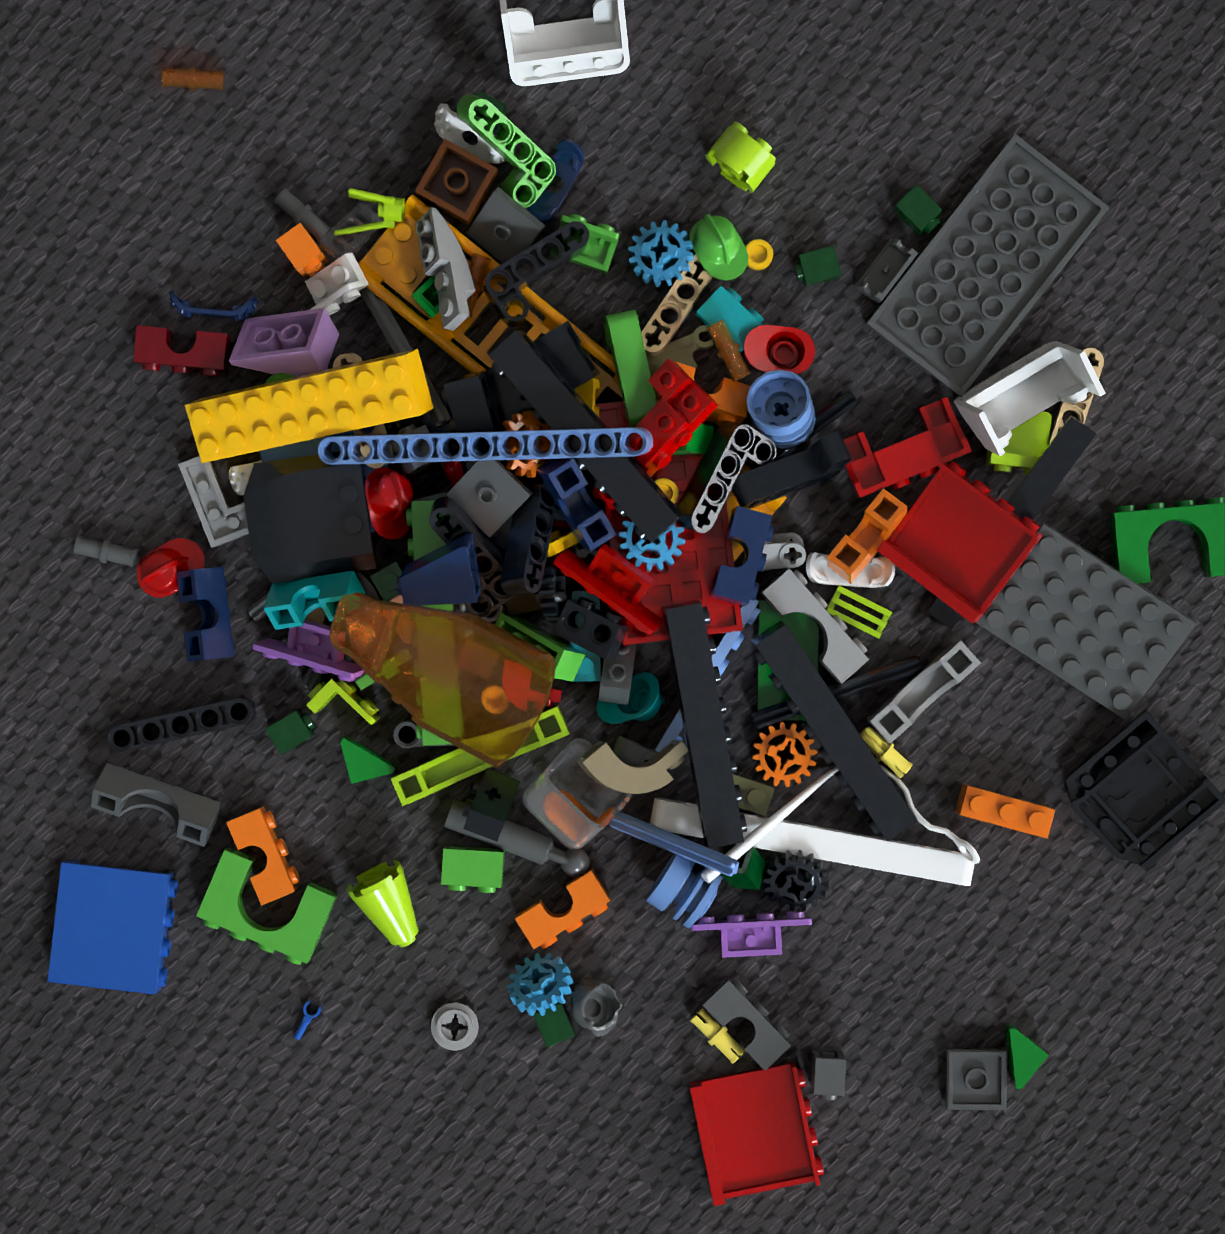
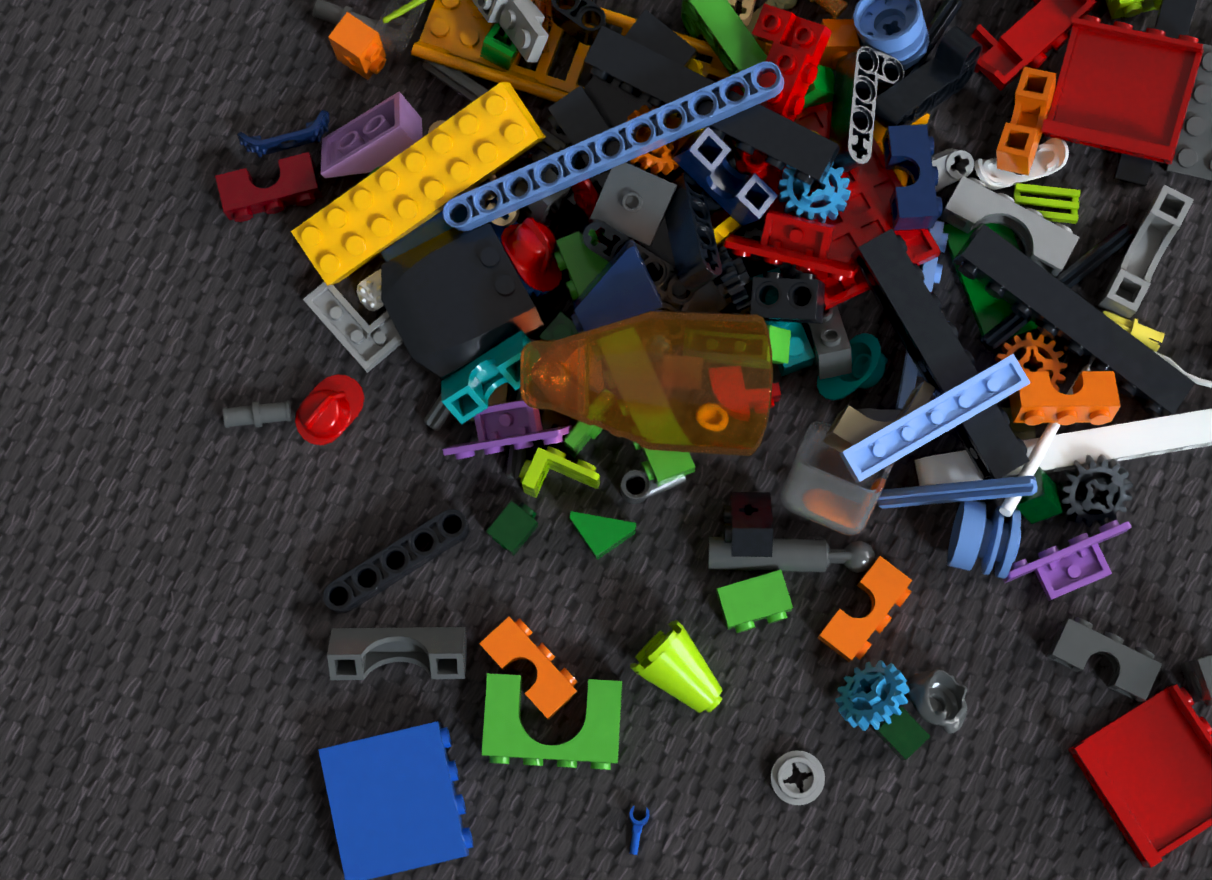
camera: 10 degrees left, 10 degrees down
(208, 591) = (376, 414): dark blue arch -> none
(337, 284) = (403, 66): white bracket -> none
(460, 764) = (715, 485): lime arch -> none
(673, 781) = (934, 418): none -> light blue plate
(717, 1035) = (1078, 685): light yellow pin -> none
(772, 791) = (1093, 400): none -> orange arch

